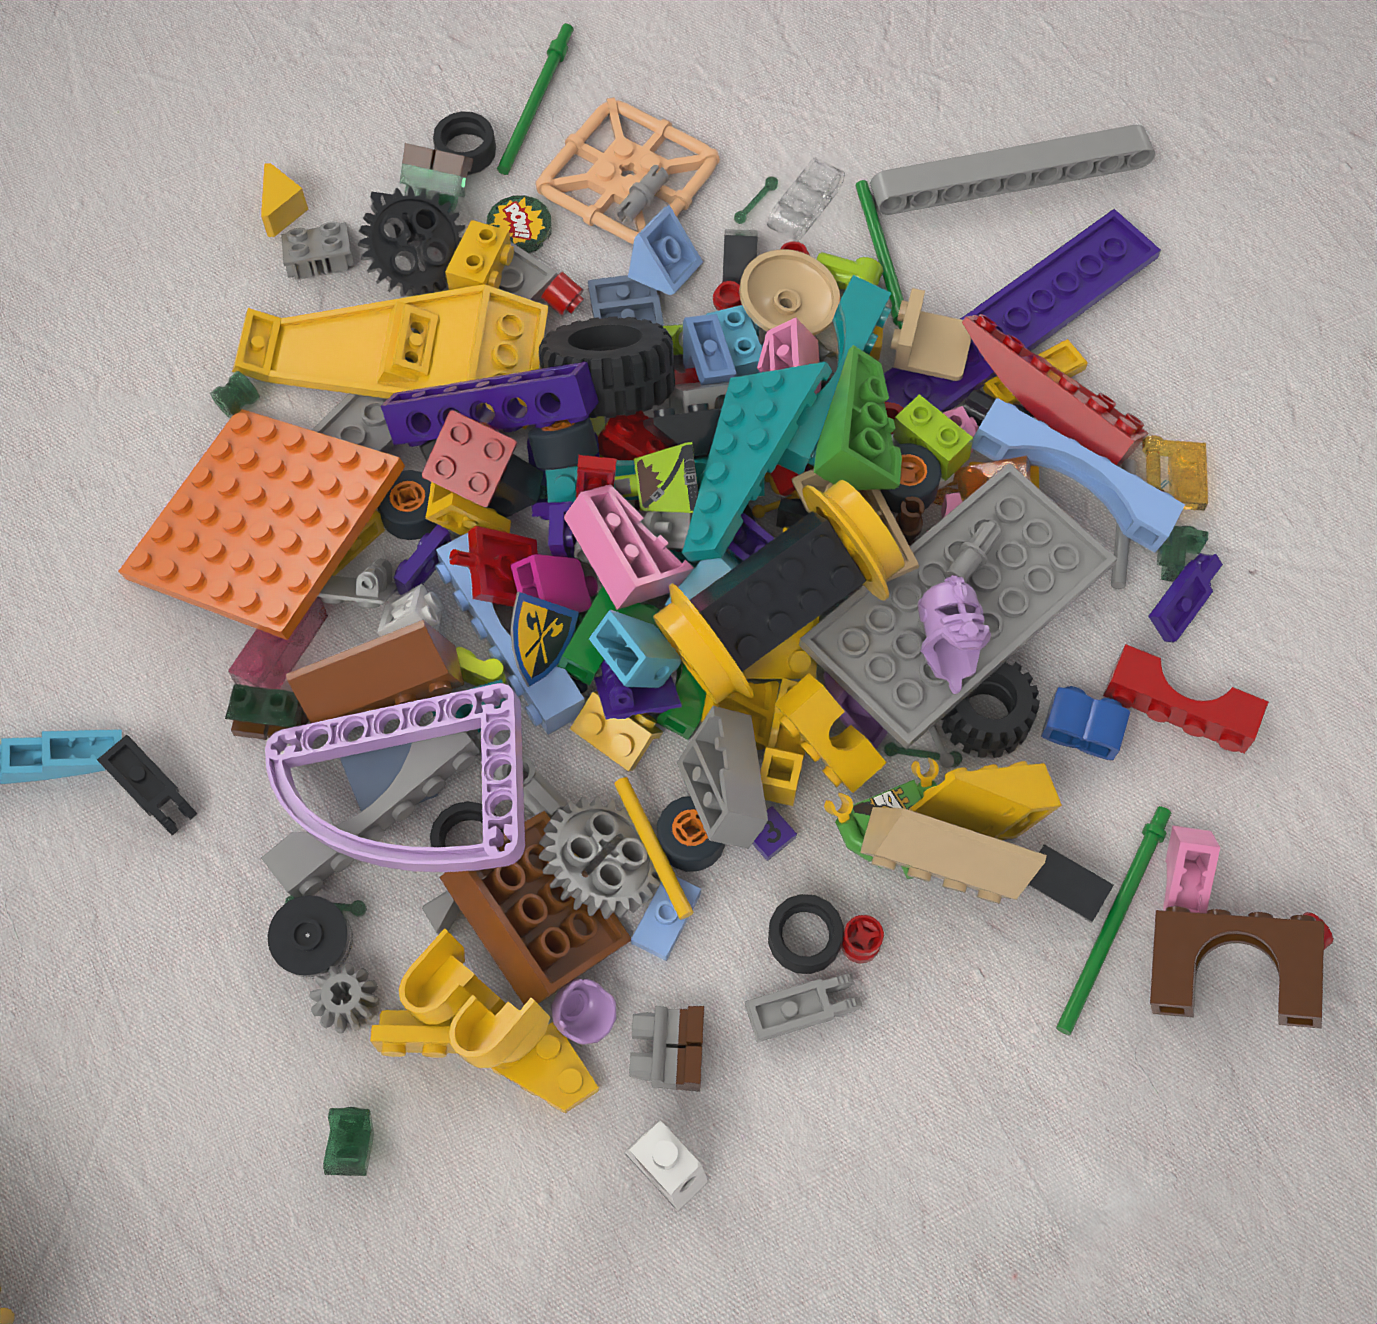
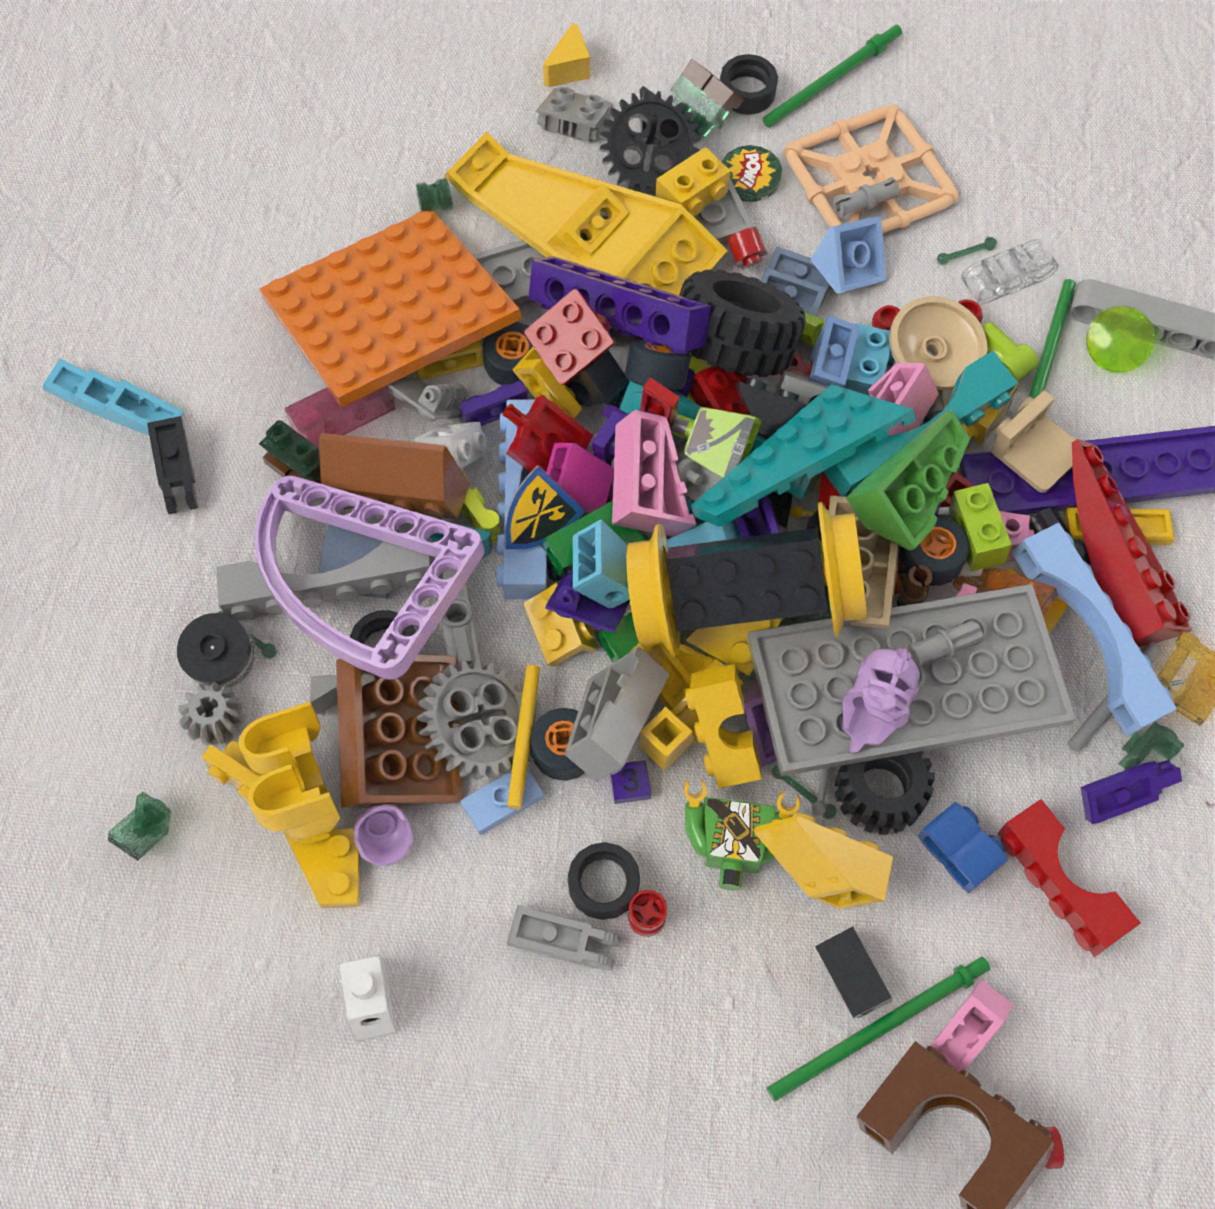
camera: 30 degrees right, 0 degrees up
(676, 1048) = (437, 907): light grey hips -> none
(739, 251) = (921, 282): black slope -> none
(937, 211) = (1120, 339): none -> clear neon green dish
(949, 853) = (761, 885): tan slope -> none

